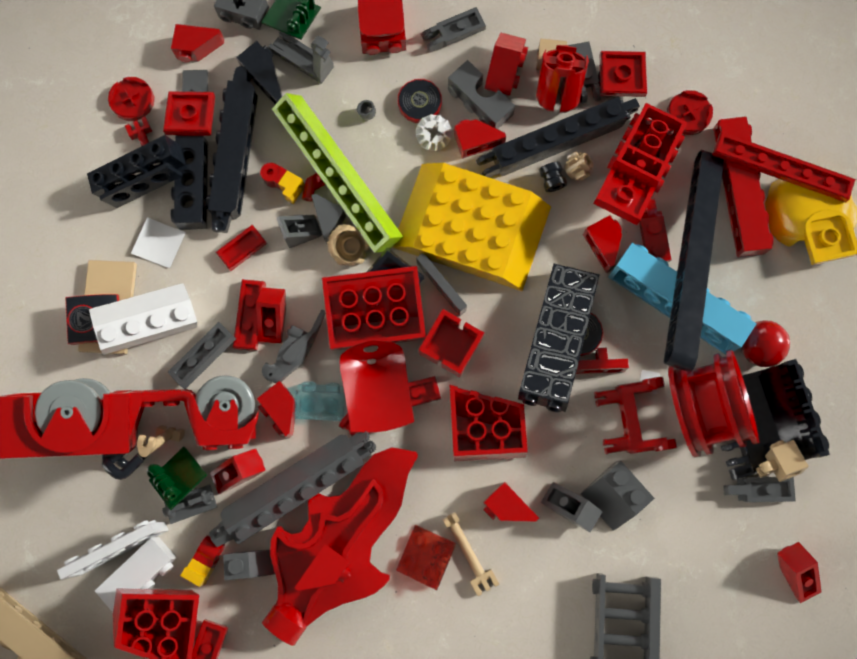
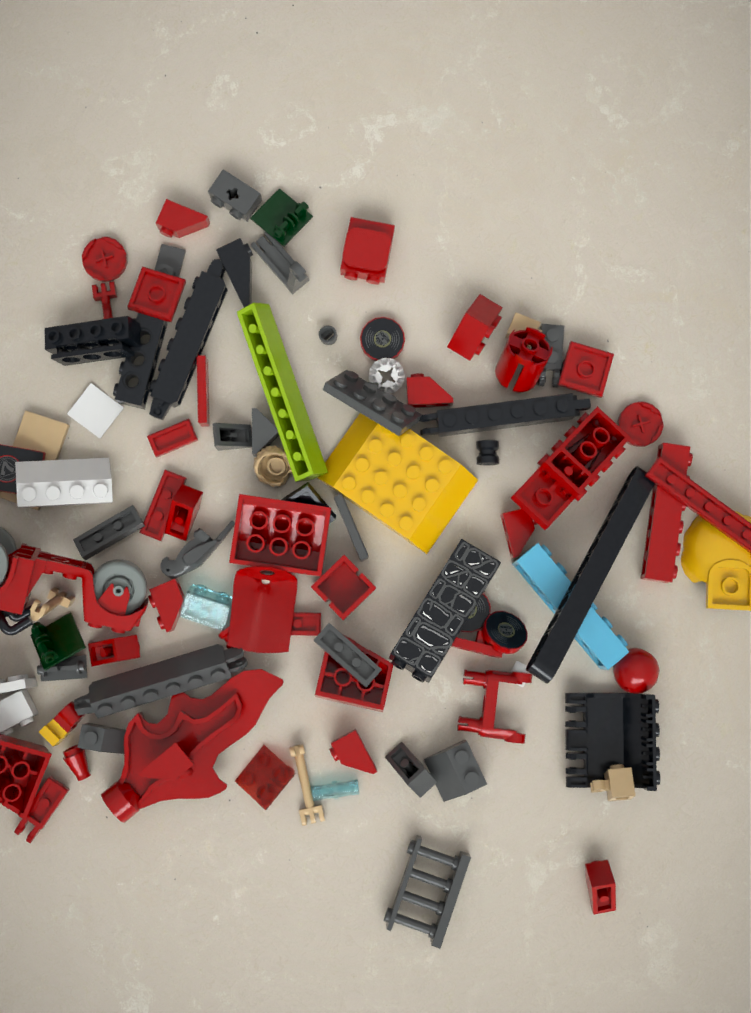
camera: 10 degrees right, 5 degrees up
(228, 596) = (77, 762): none -> red cone
(259, 194) = (203, 391): none -> red tile
(280, 178) = (224, 378): leg -> none
(311, 185) = (254, 395): red arm -> none
(426, 156) = (372, 402): none -> dark grey plate
(454, 29) = (437, 276): dark grey hinge -> none
(475, 406) = (347, 655): none -> dark grey plate
(490, 110) = (448, 370): dark grey arch -> none
(501, 550) = (335, 790): none -> clear light blue pin
(578, 166) = (515, 449): tan gear -> none
(623, 342) = (504, 632): none -> black tile
(654, 232) = (567, 536): red hinge -> none
(713, 405) = (564, 717): red wheel -> none
(762, 489) = (591, 804): dark grey hinge -> none

